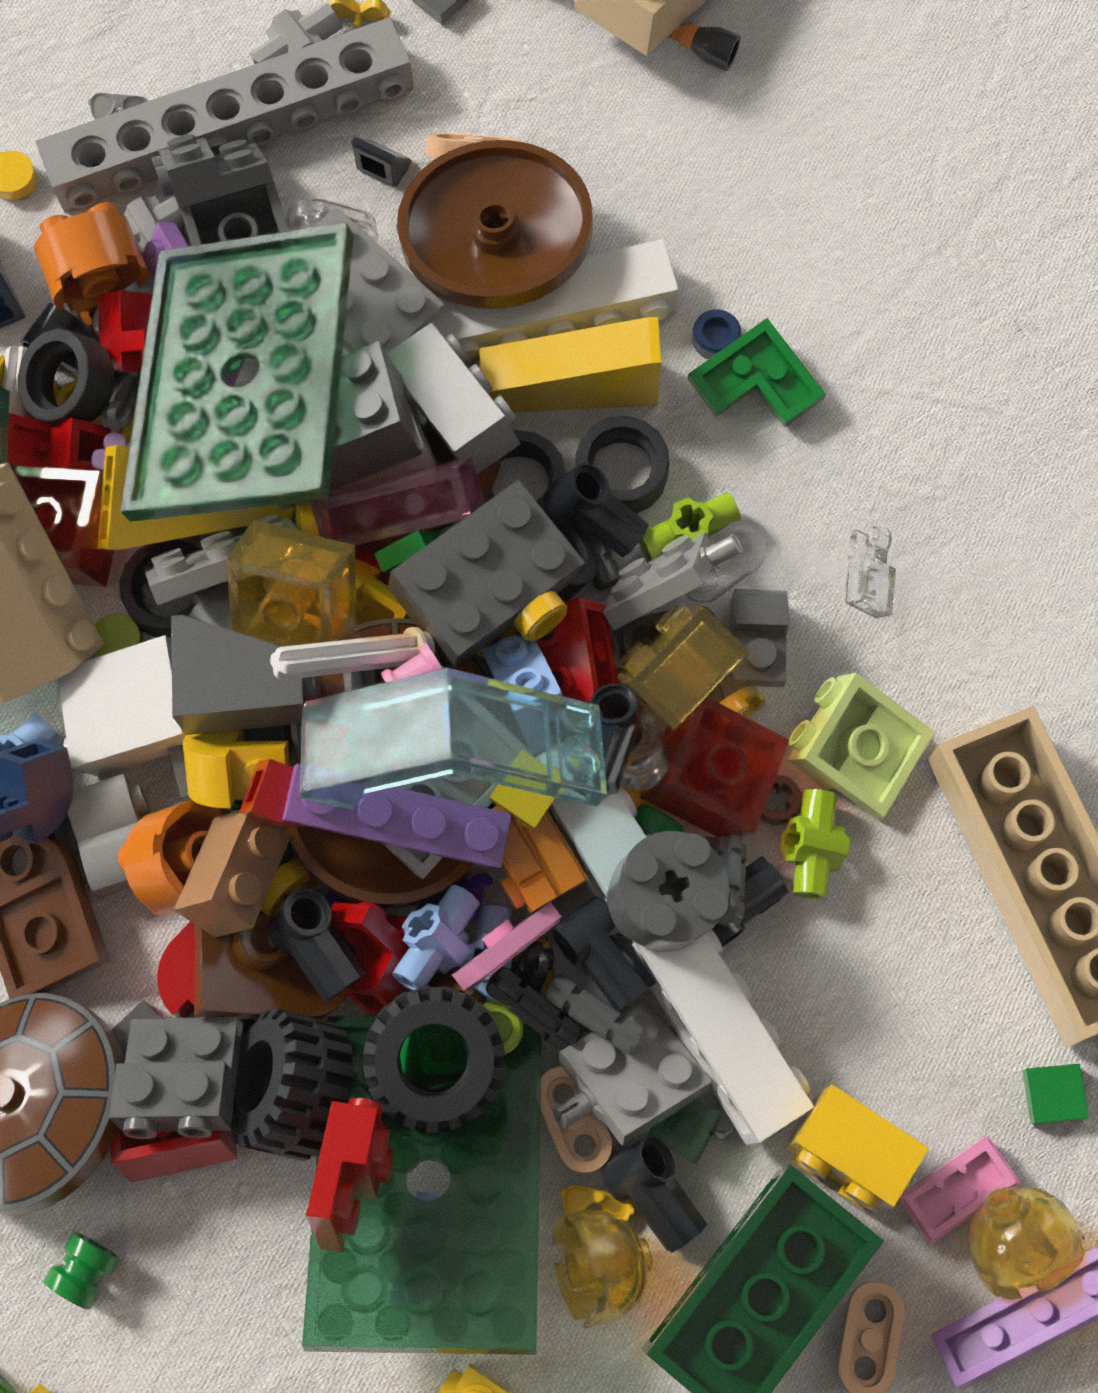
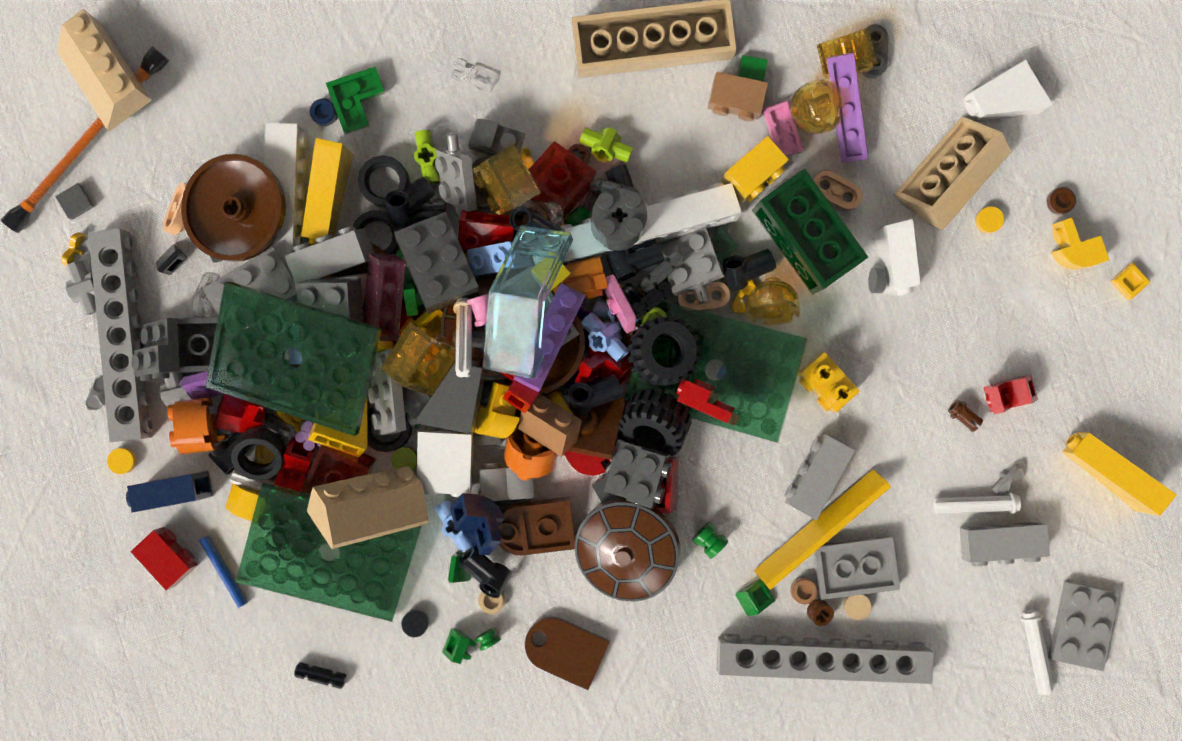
camera: 75 degrees left, 15 degrees up
(540, 616) = (466, 241): yellow tile -> none
(859, 743) = (562, 108): yellowish green plate -> none
(993, 1075) = (737, 96): none -> medium nougat brick

